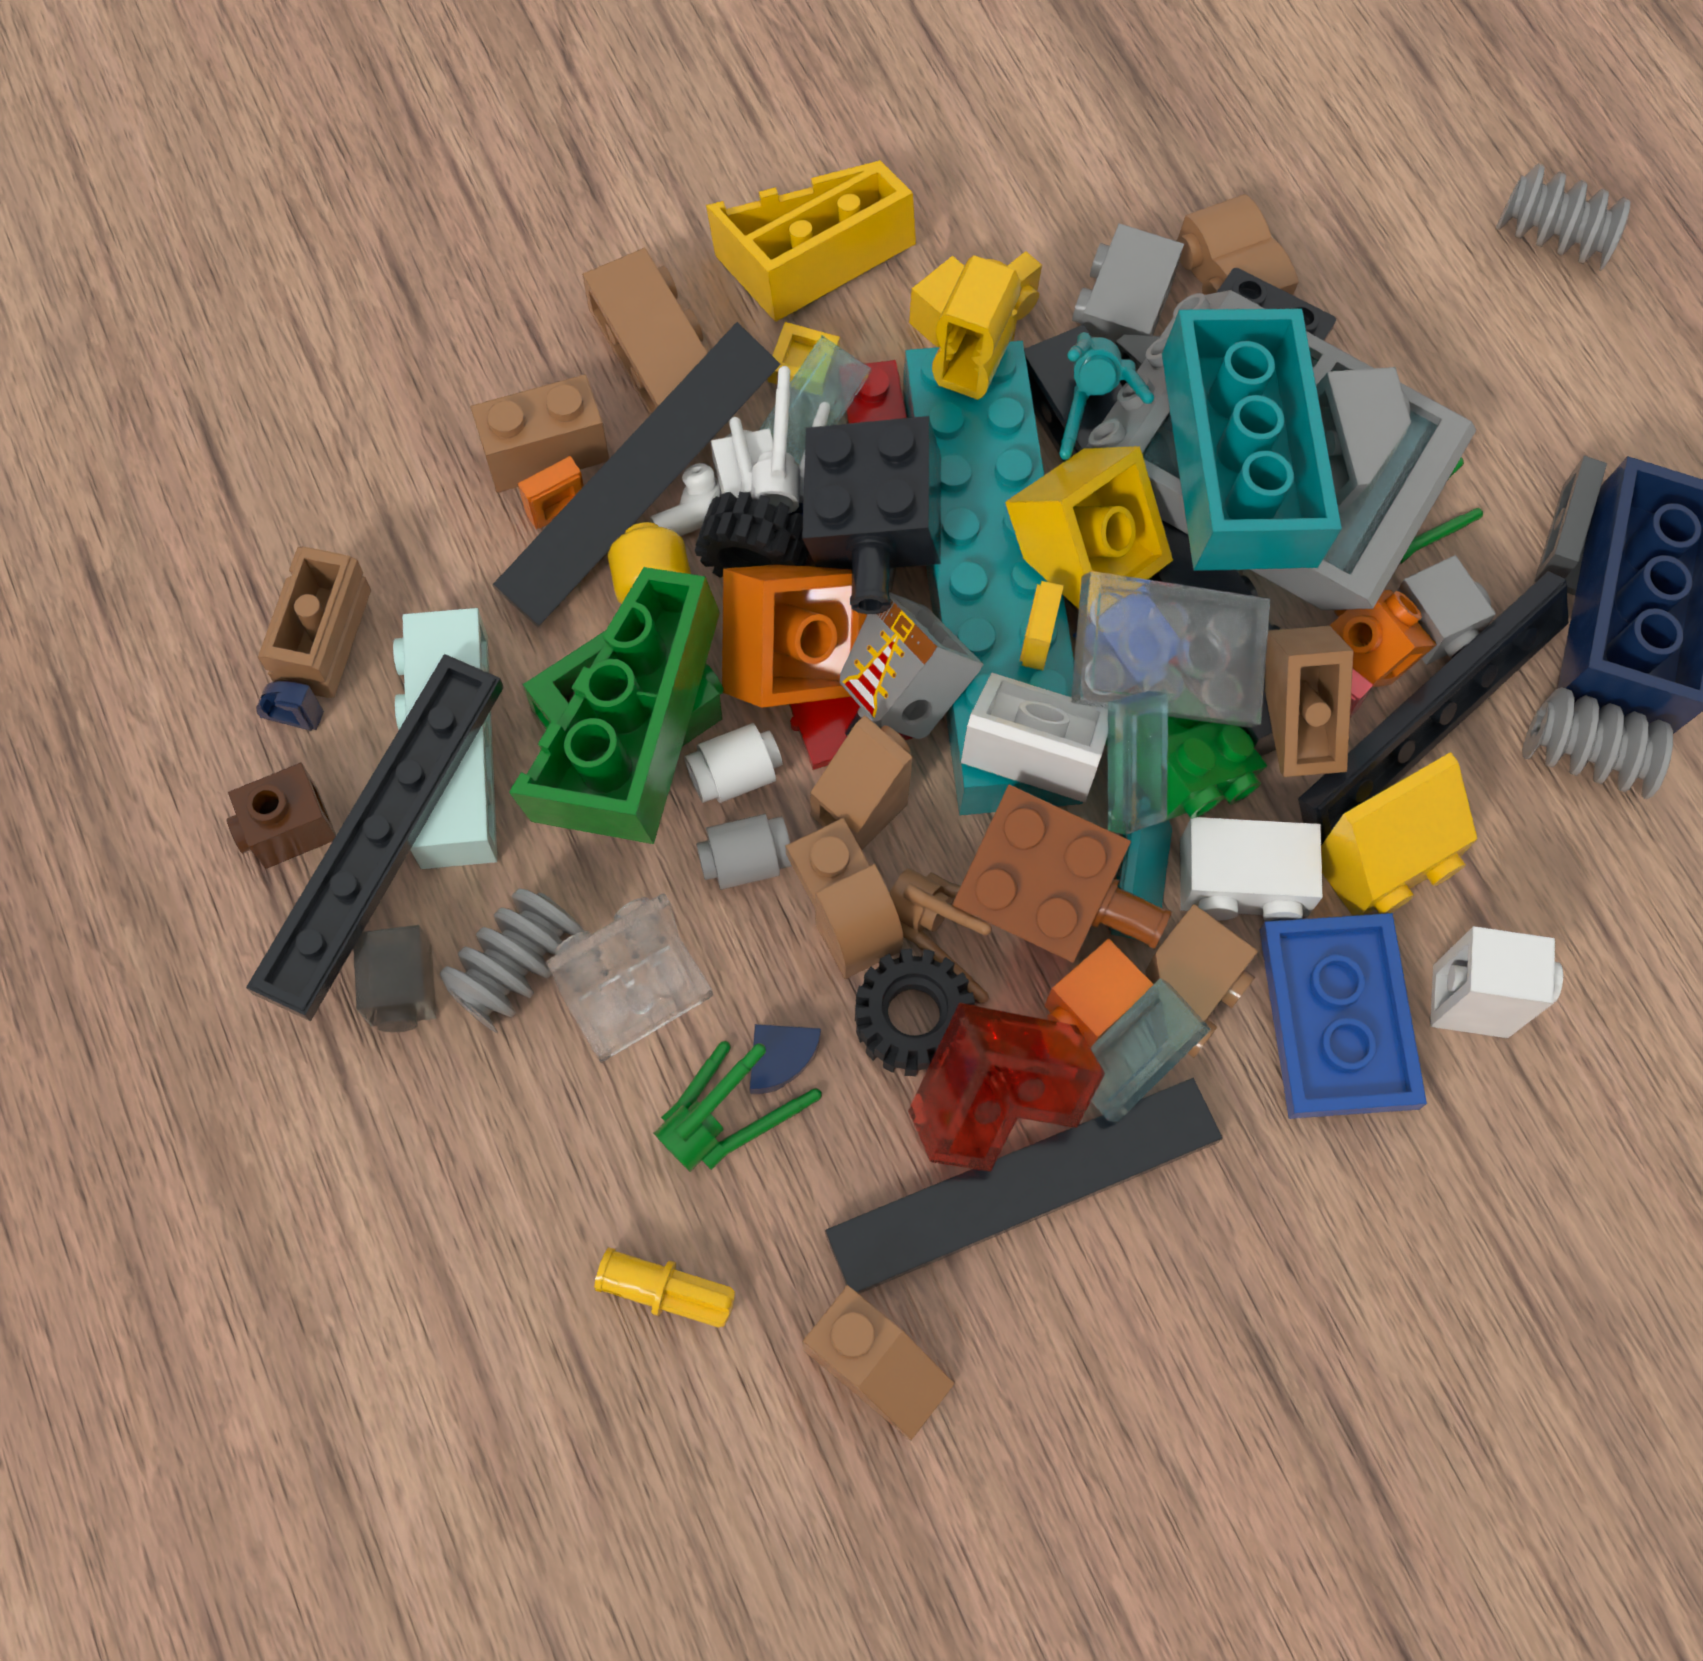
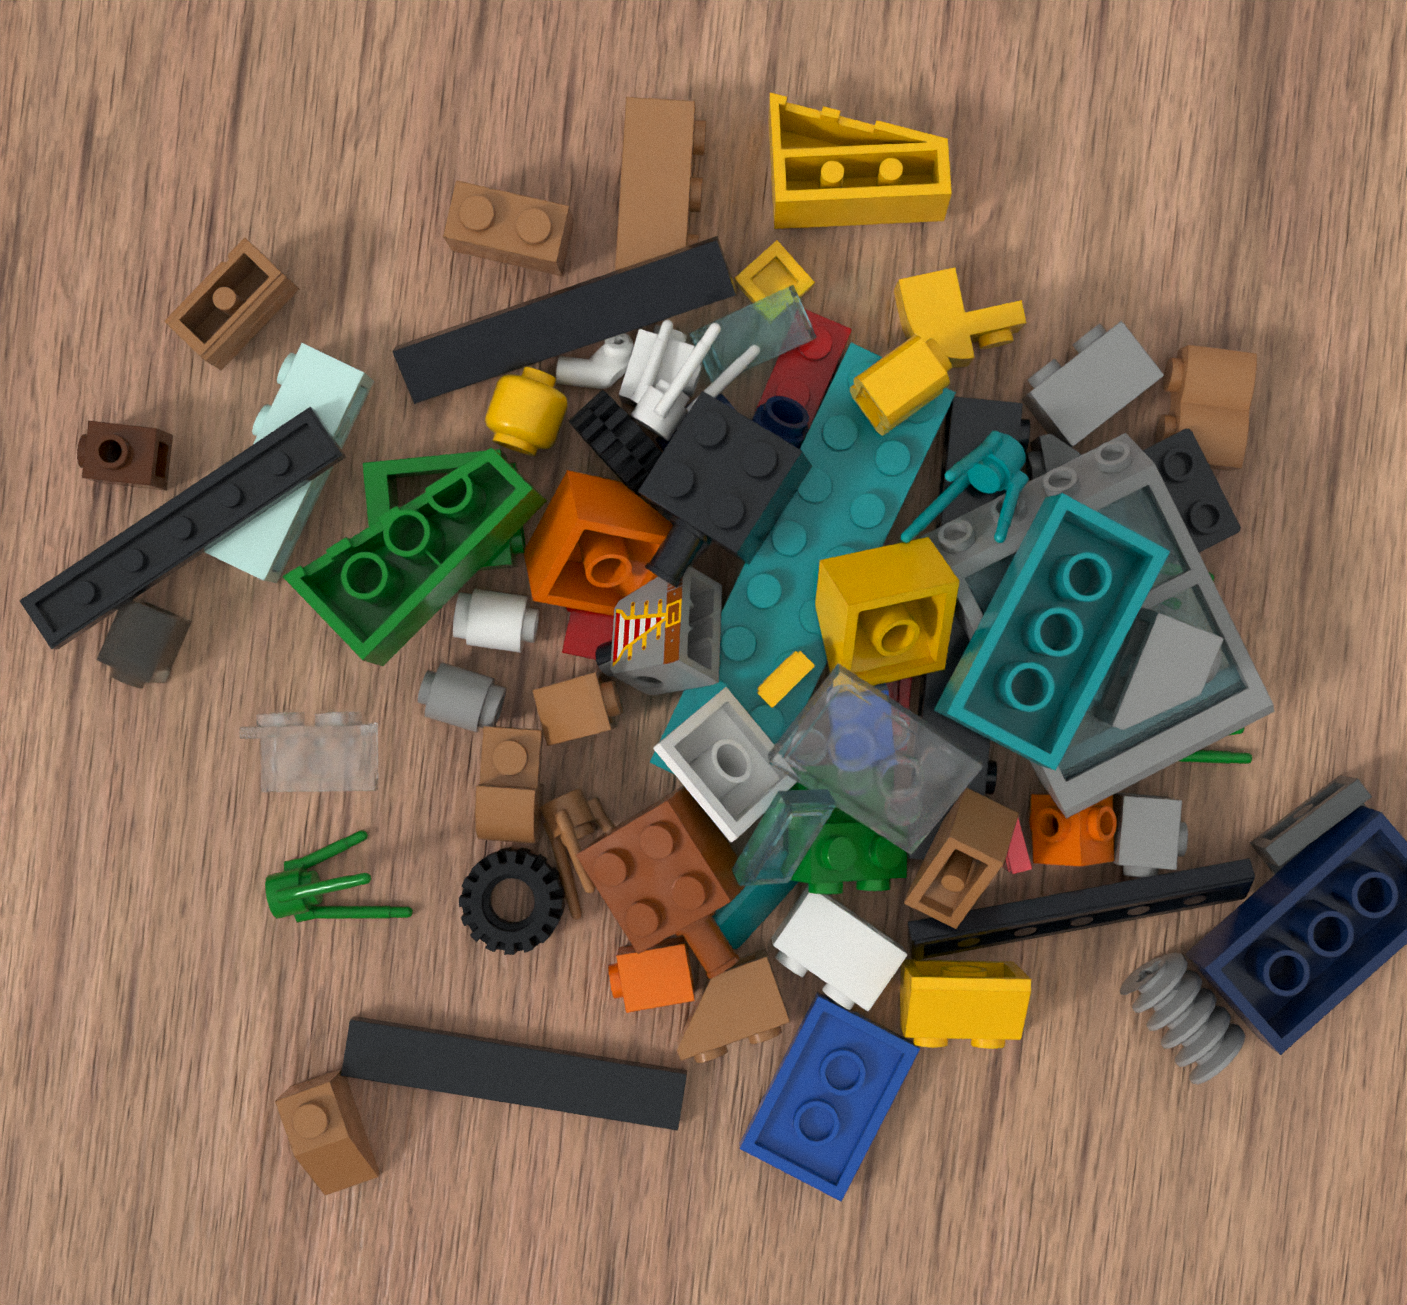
camera: 30 degrees right, 20 degrees up
(290, 705) = (181, 359): dark blue tile -> none
(508, 955) = (238, 681): light grey piece -> none
(550, 491) = (489, 290): orange tile -> none
(664, 1288) = (214, 990): yellow axle -> none
(786, 1056) = (398, 869): dark blue tile -> none
(991, 1074) = (531, 1001): clear red brick -> none
(1144, 1048) = (651, 1039): clear light blue tile -> none
(1494, 982) = (949, 1156): white brick -> none

